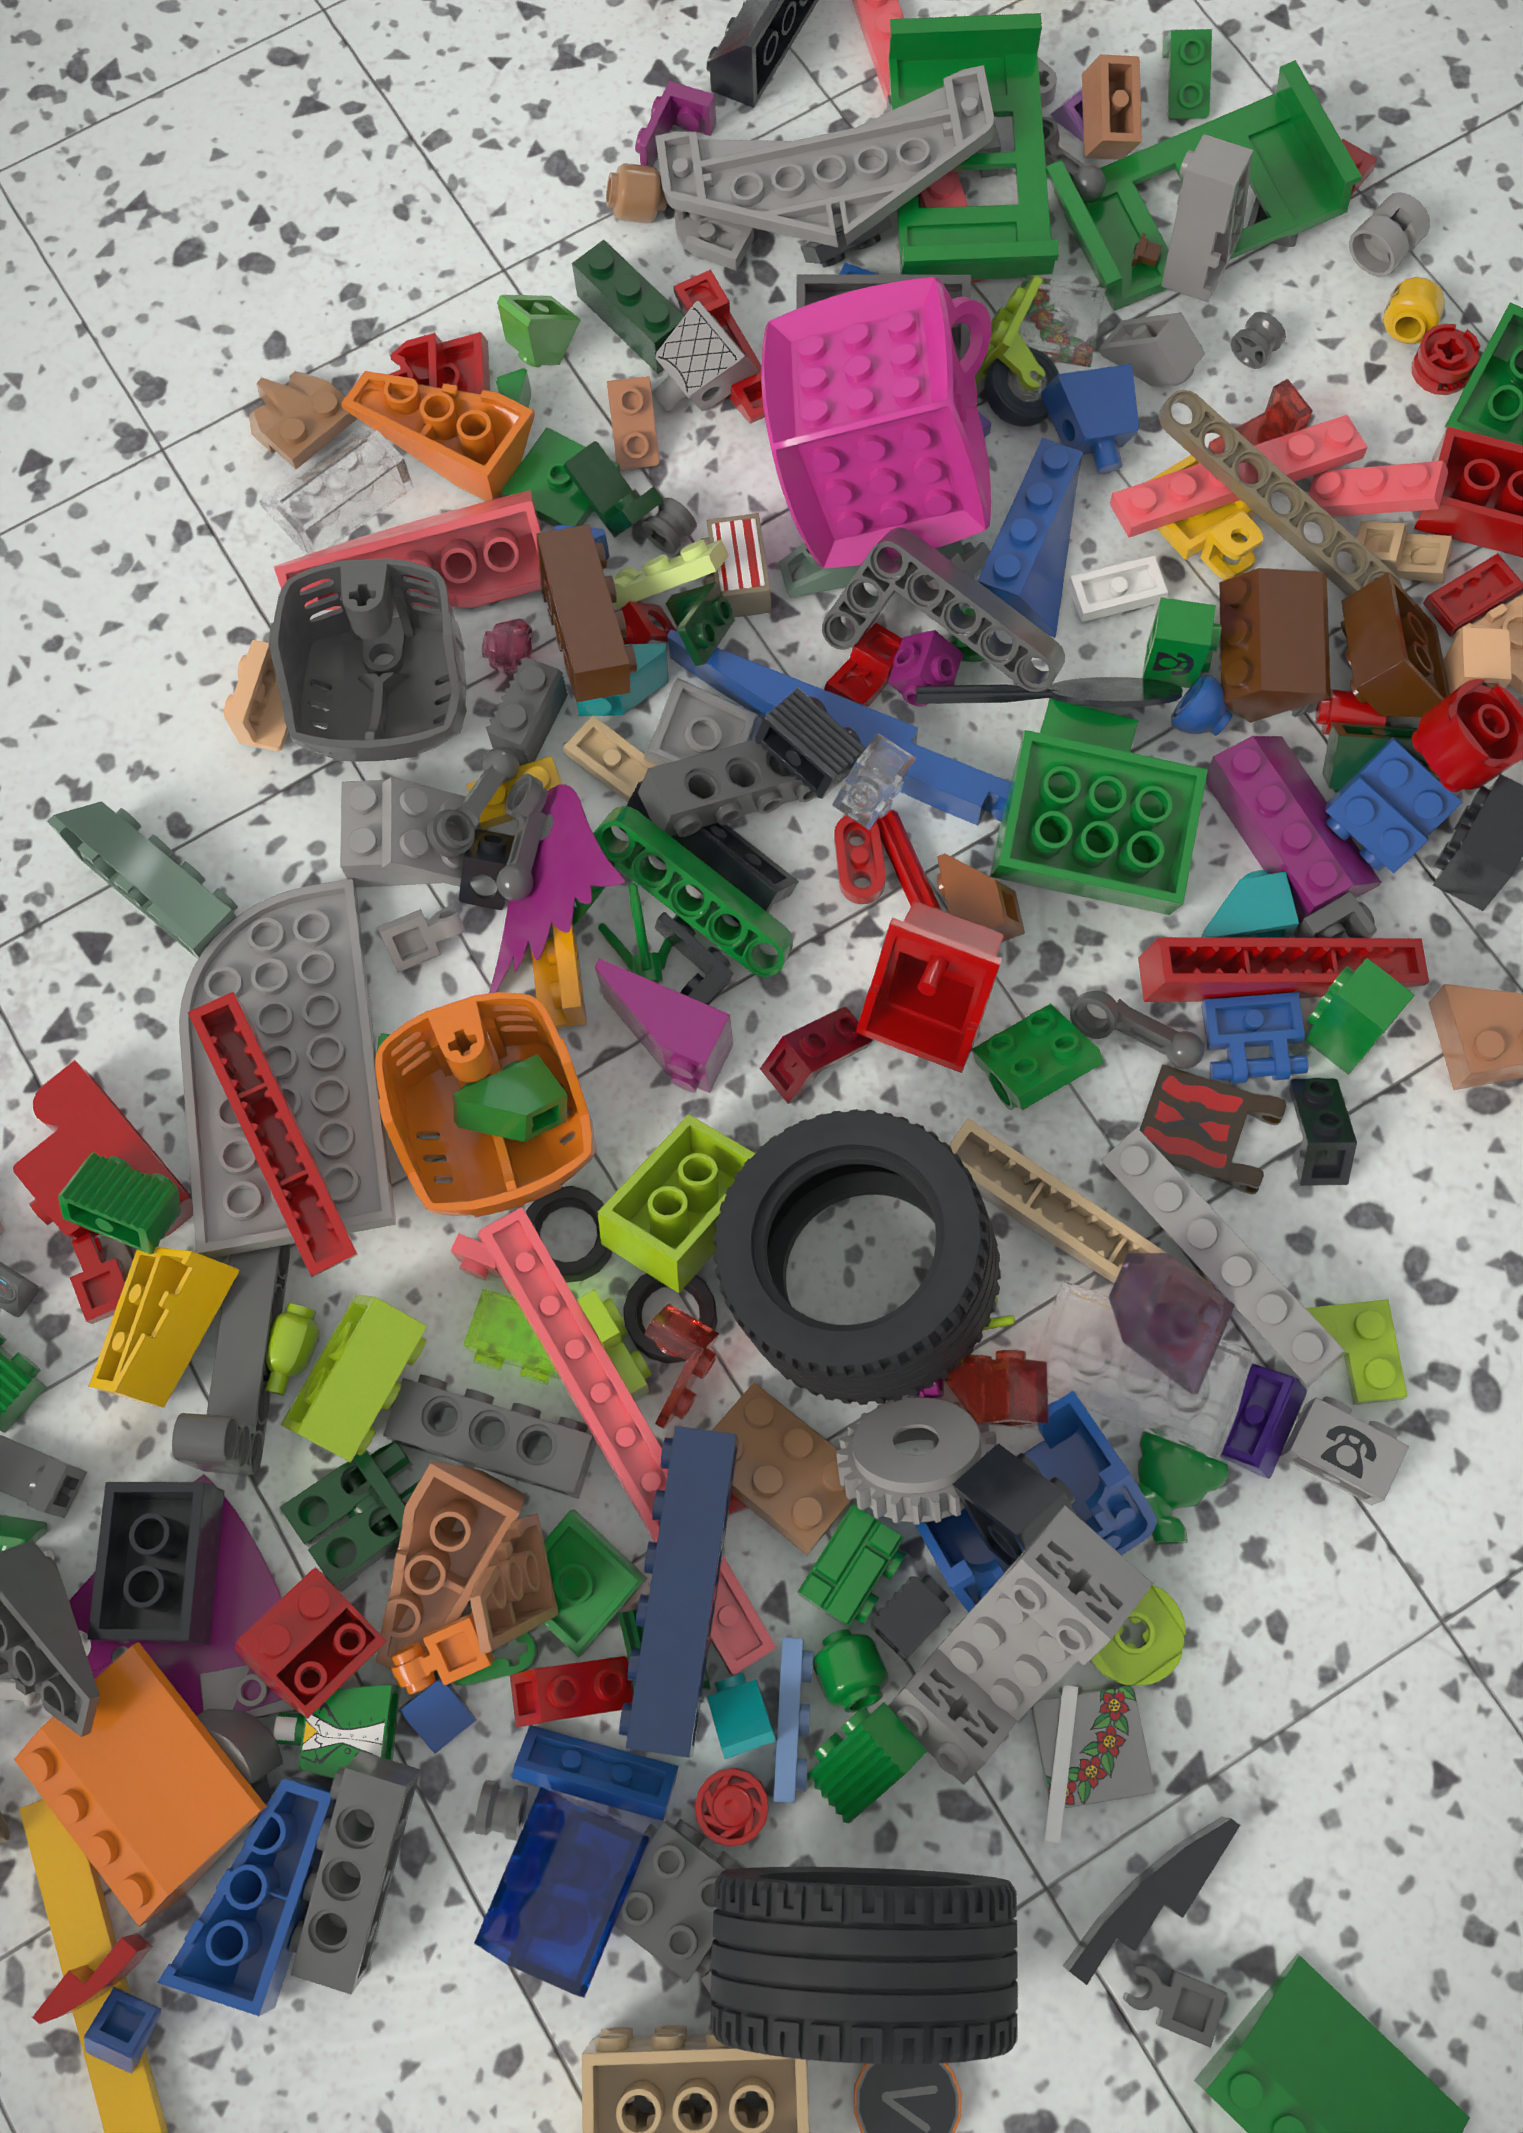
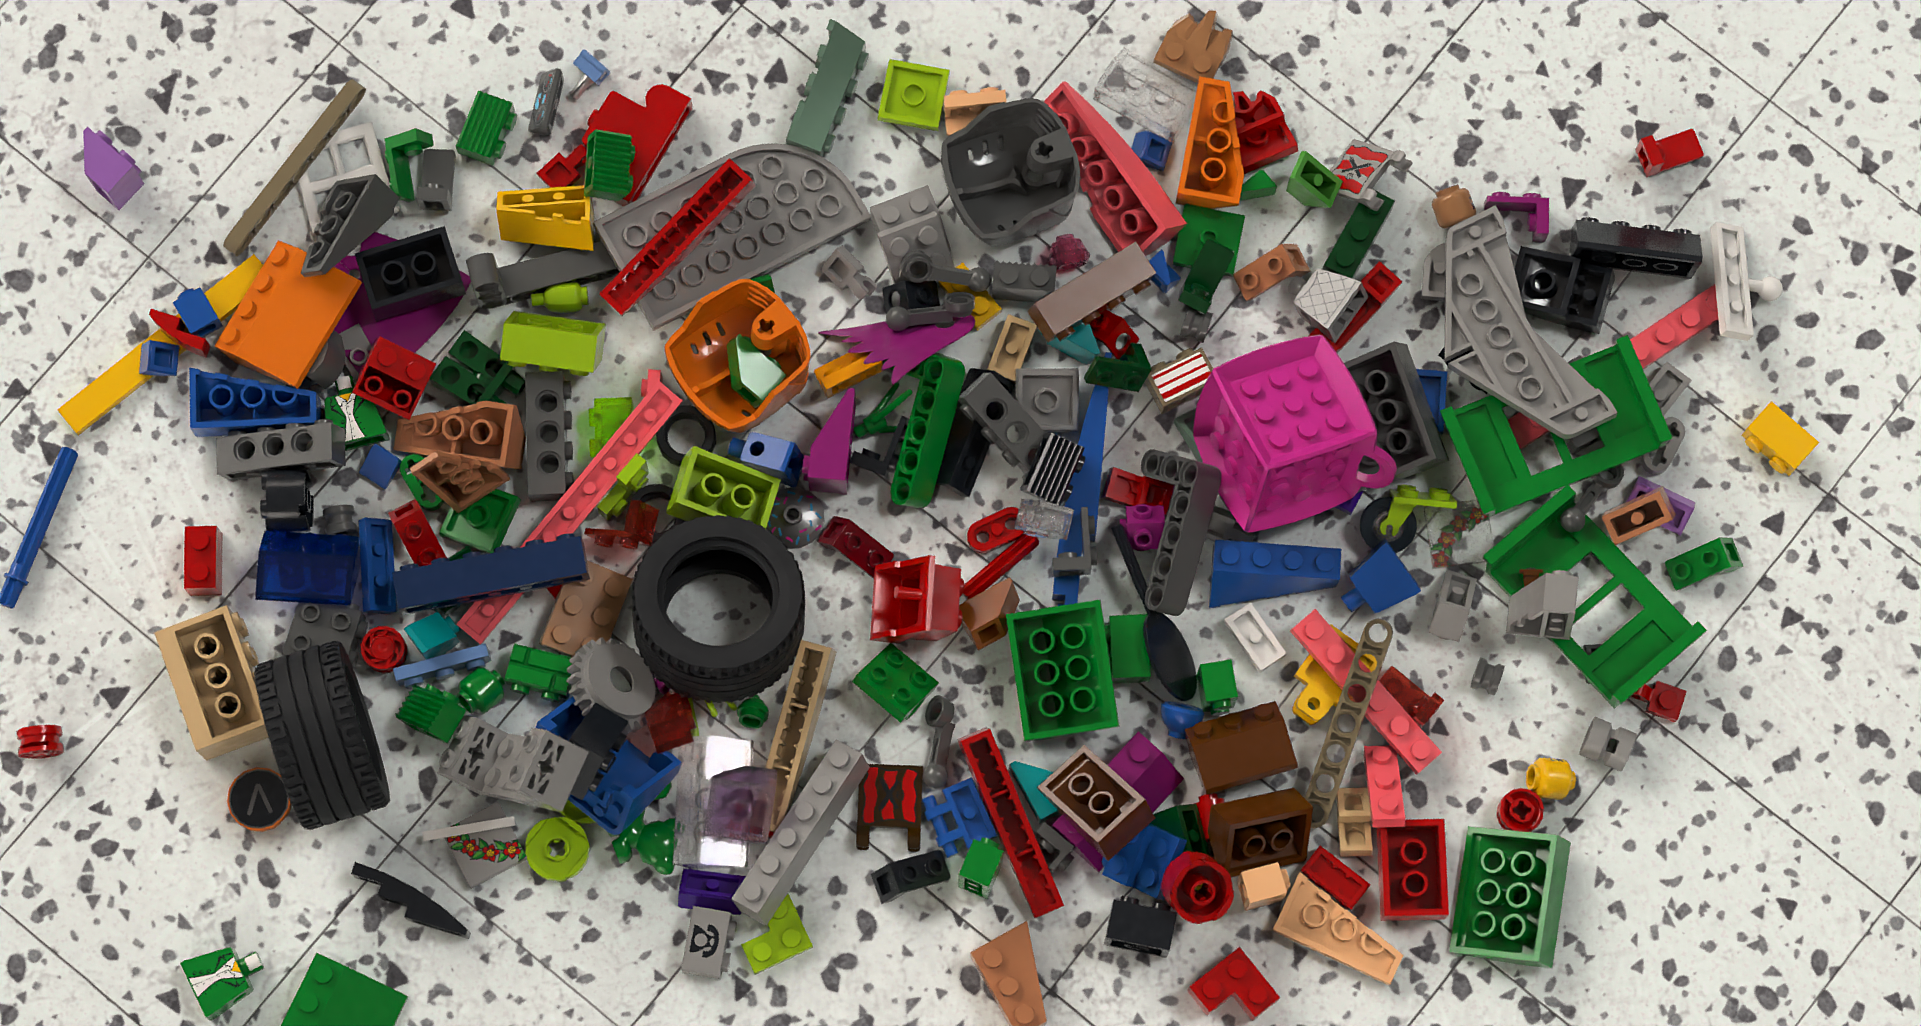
camera: 65 degrees right, 5 degrees up
(72, 1937) = (197, 312): none -> blue brick
(205, 772) = (913, 95): none -> lime plate
(408, 506) = (1151, 149): none -> blue slope
(439, 1886) = (287, 500): none -> black brick
(450, 1650) = (401, 443): orange plate -> none
(483, 2067) = (203, 560): none -> red brick
(547, 262) = (1362, 167): none -> light grey flag
(647, 1105) = (769, 455): none -> blue torso
(663, 574) = (1150, 334): yellowish green plate -> none
(746, 1099) = (806, 527): none -> flat silver dish
(790, 101) = (1563, 289): none -> black slope
(911, 1615) = (518, 710): black brick -> none
(945, 737) = (1068, 563): none -> dark grey bracket
(1017, 1272) = (752, 712): none -> green plate
(1184, 2004) = (359, 937): dark grey plate -> none
(1309, 829) = (1097, 802): none -> reddish brown slope

